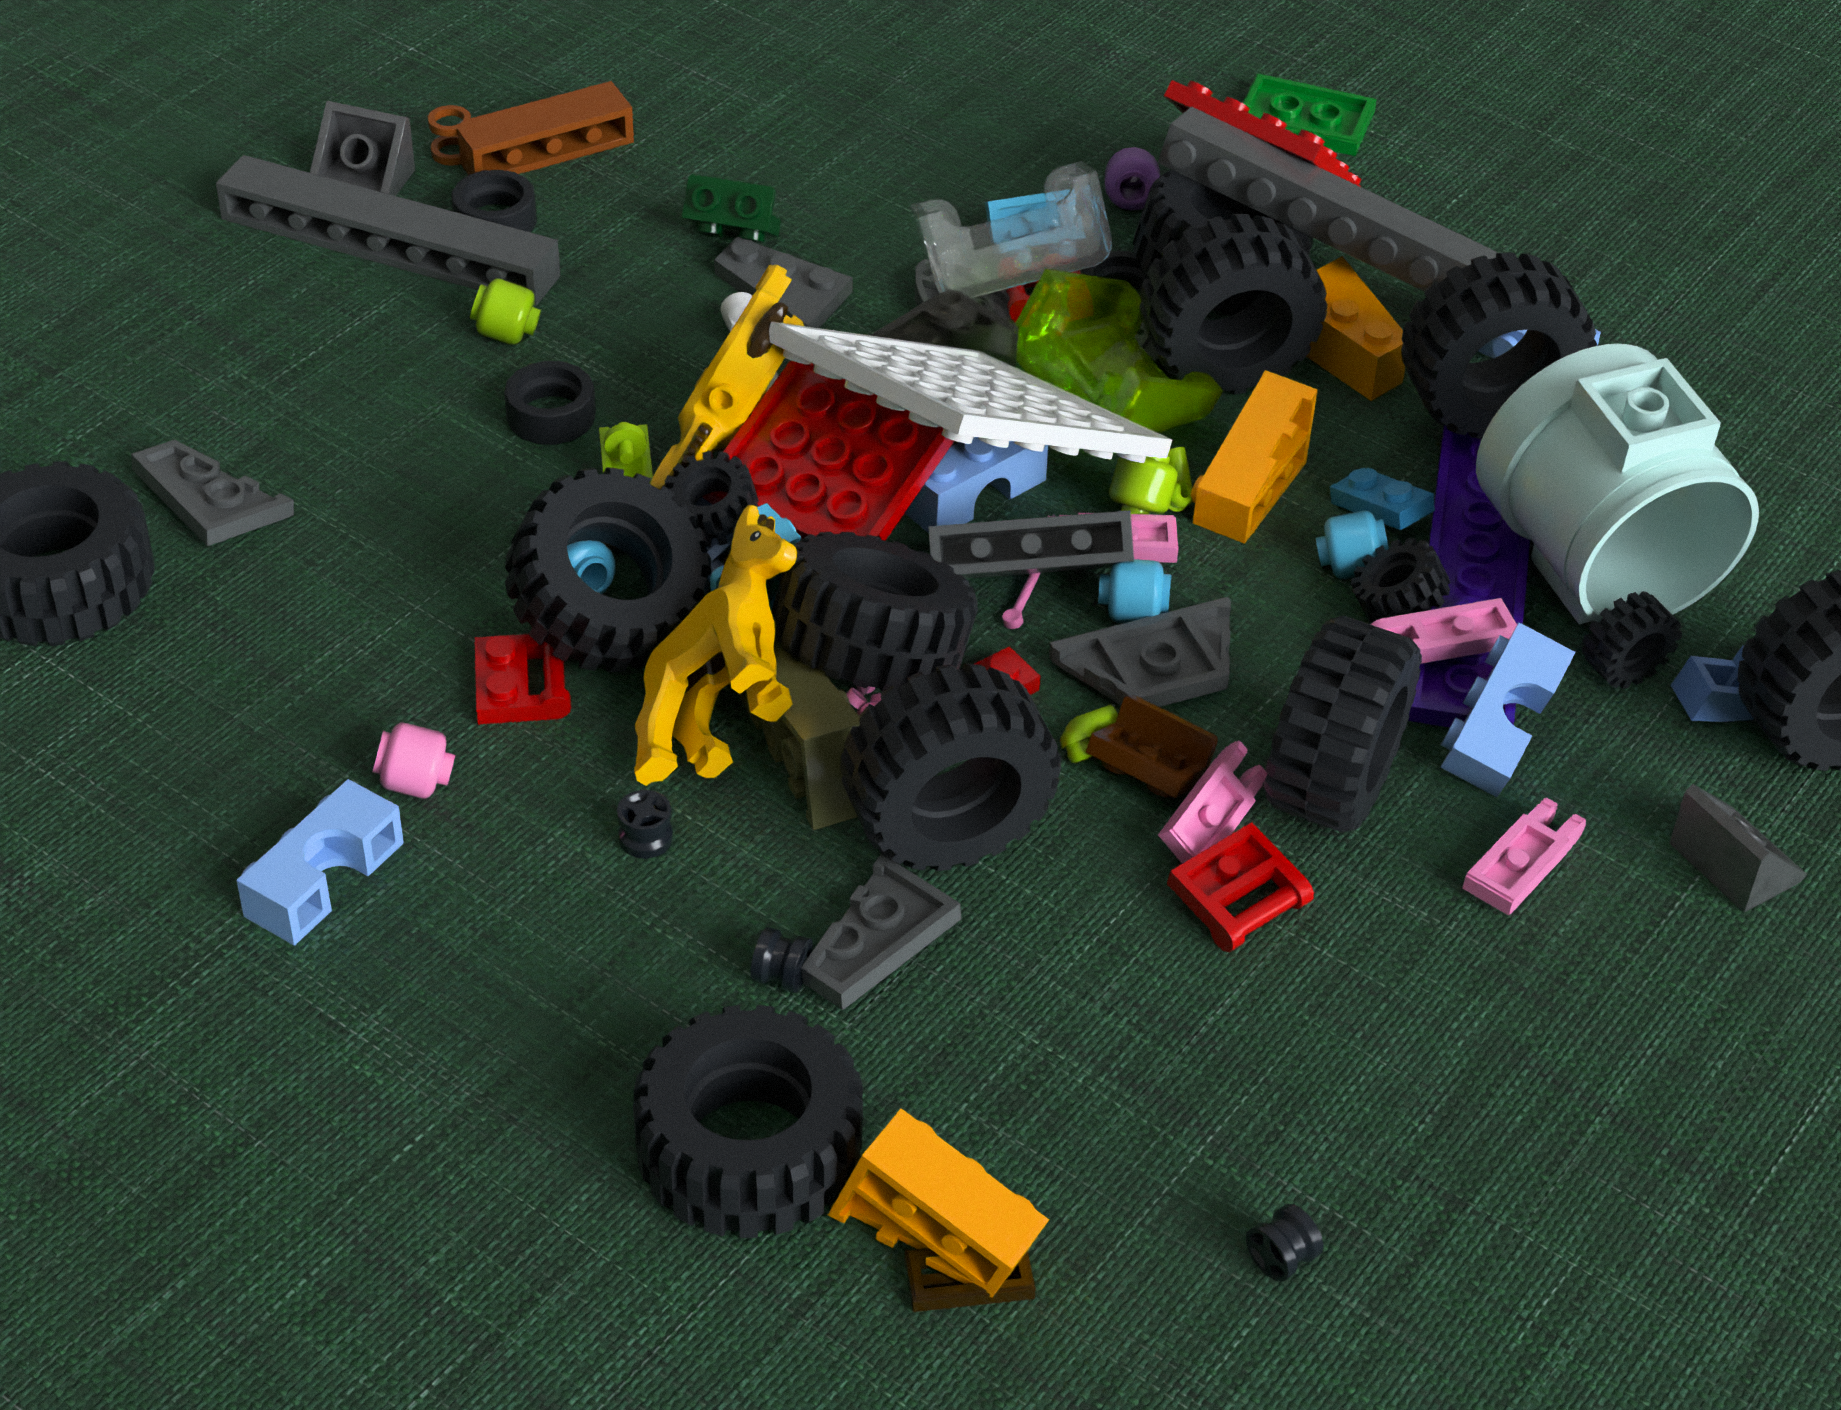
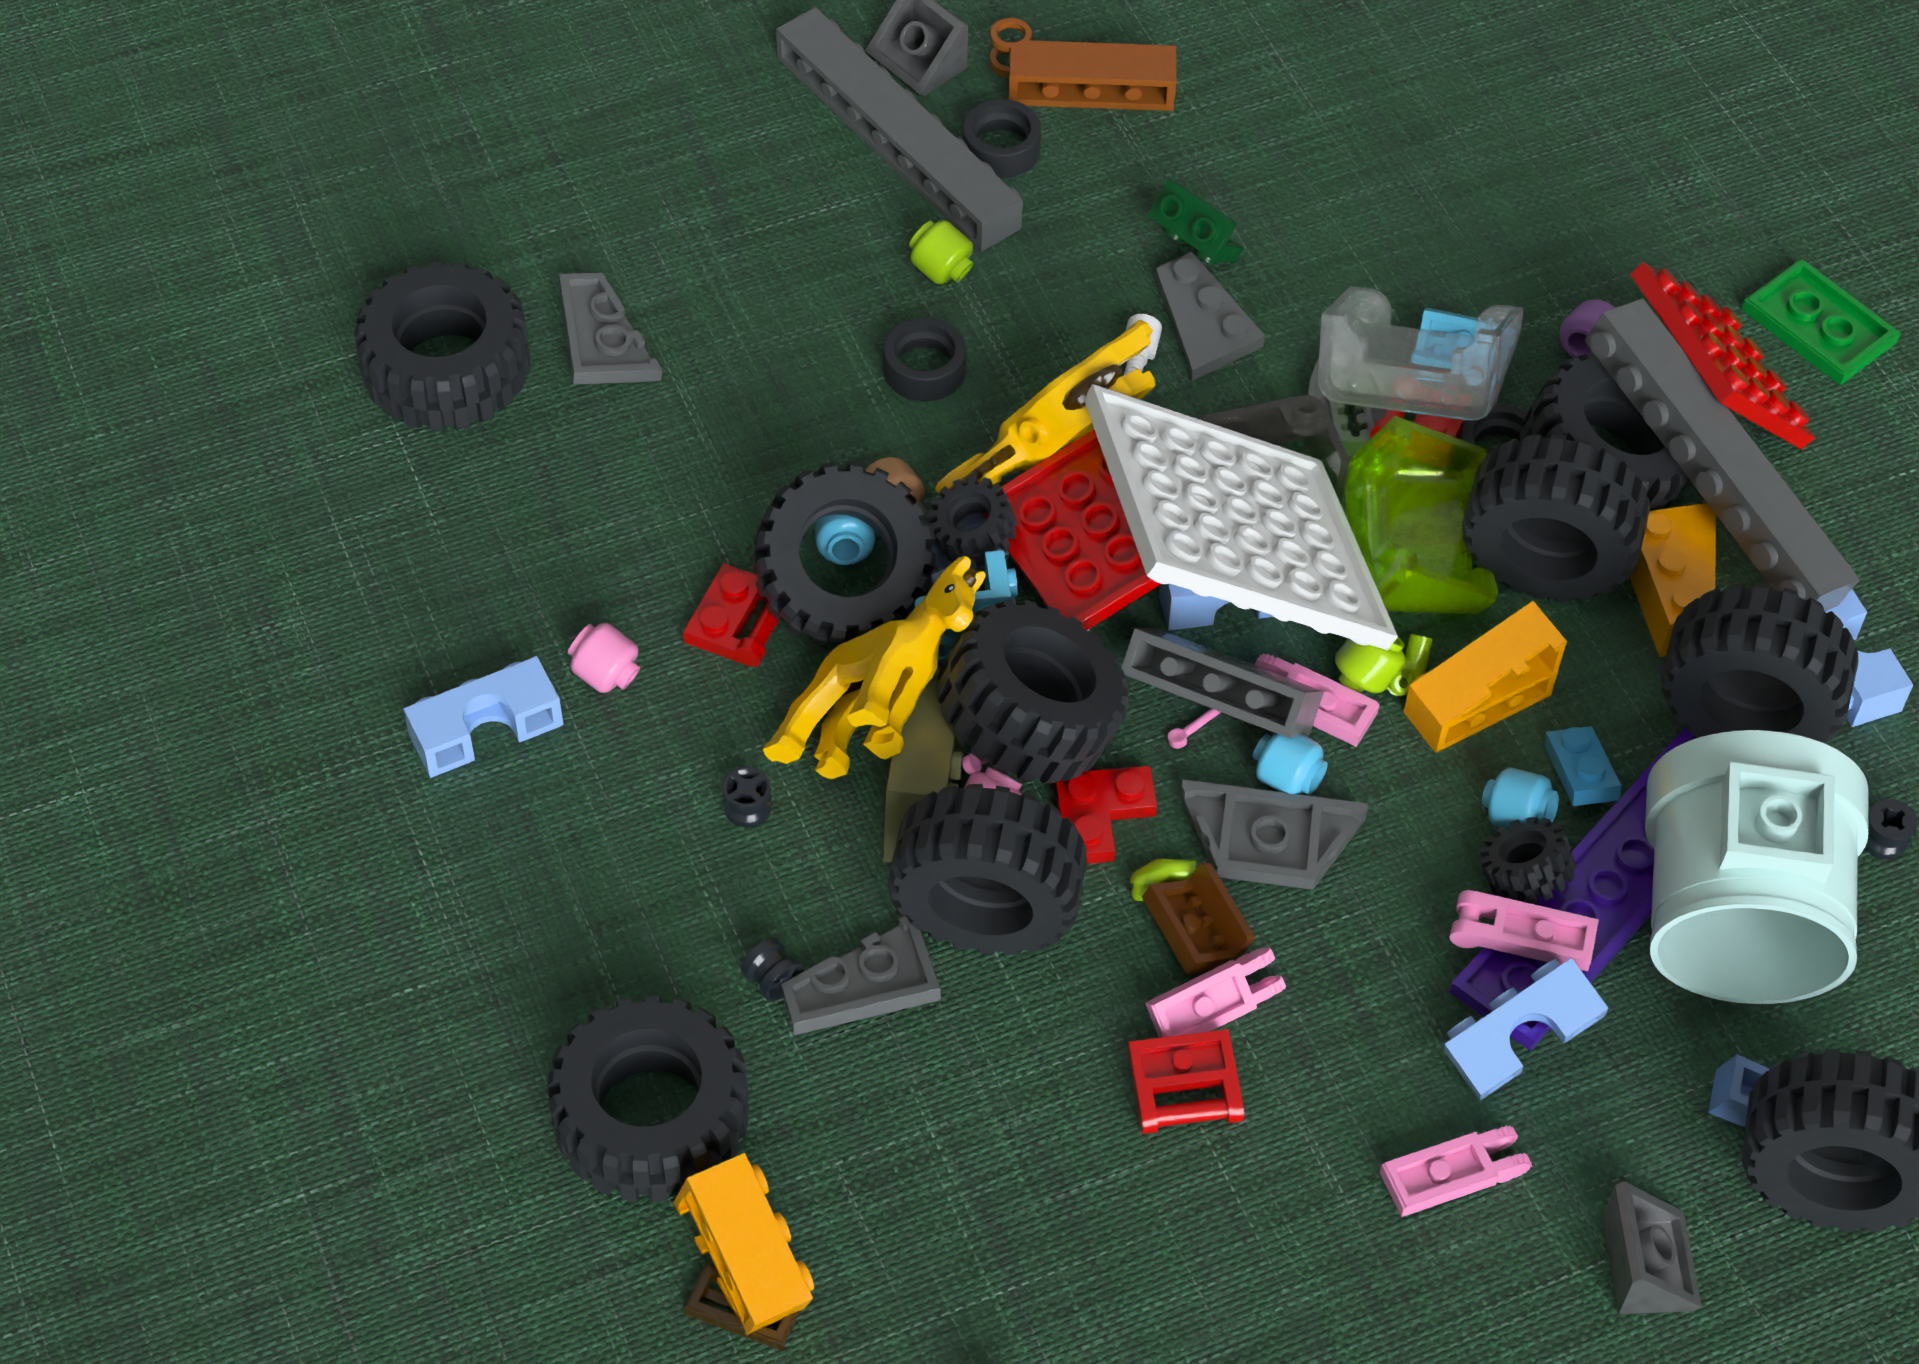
camera: 30 degrees right, 10 degrees up
(626, 448) = (943, 445): lime hips -> none
(1342, 723) = (1346, 981): black tyre -> none
(1631, 639) = (1697, 1012): black tyre -> none

